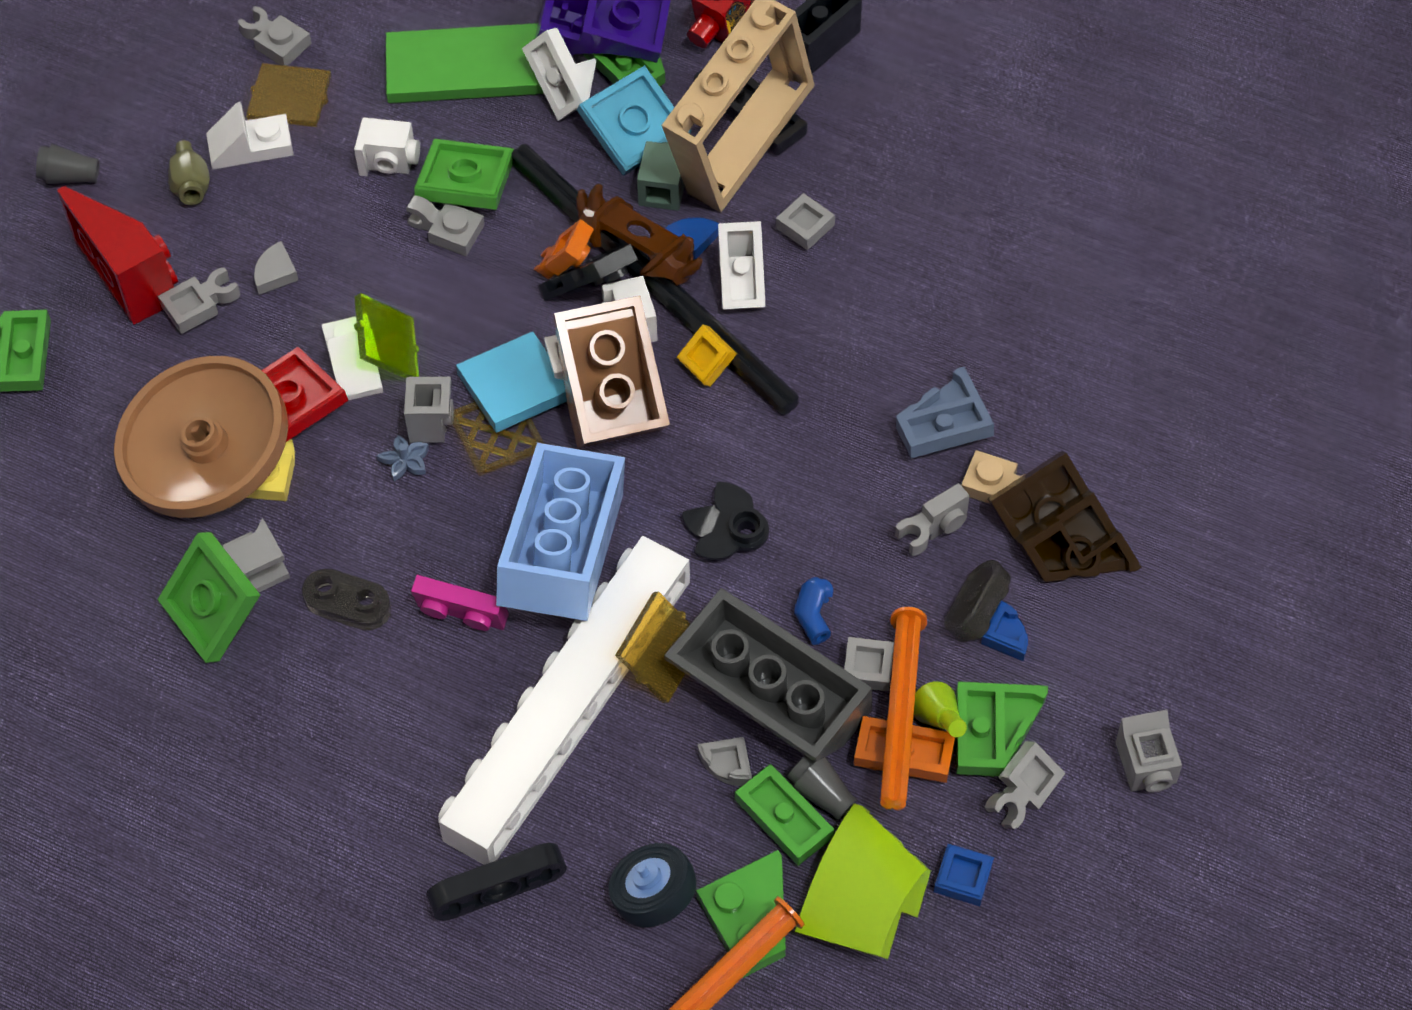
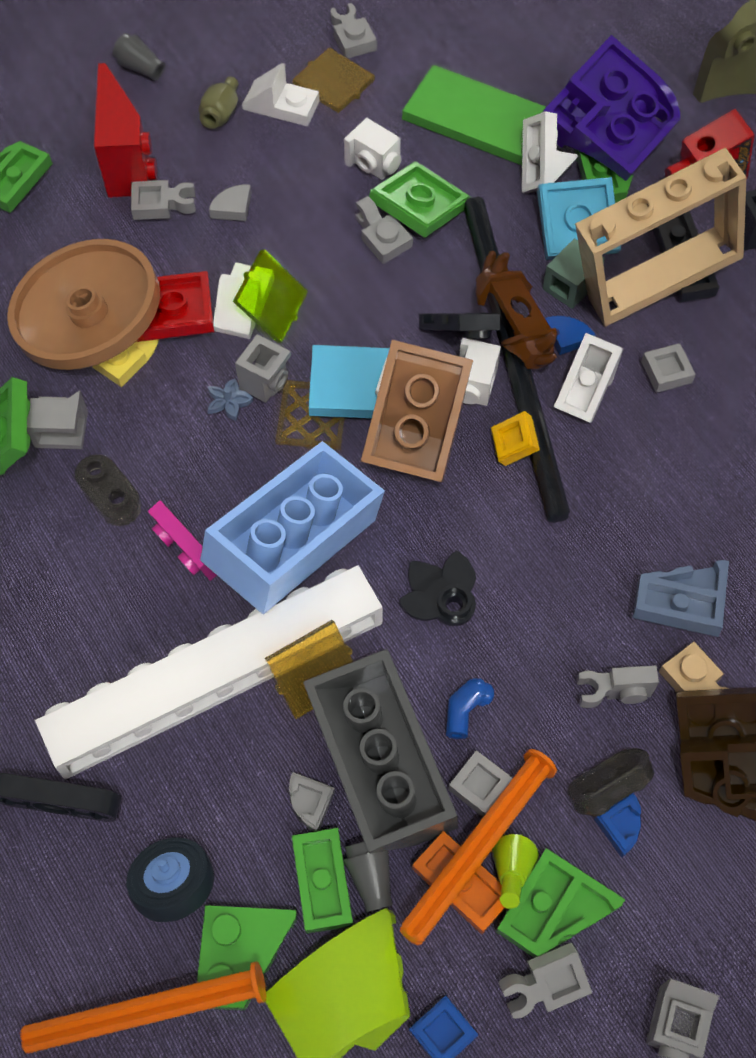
camera: 30 degrees right, 5 degrees up
(568, 250) = (455, 296): orange plate -> none

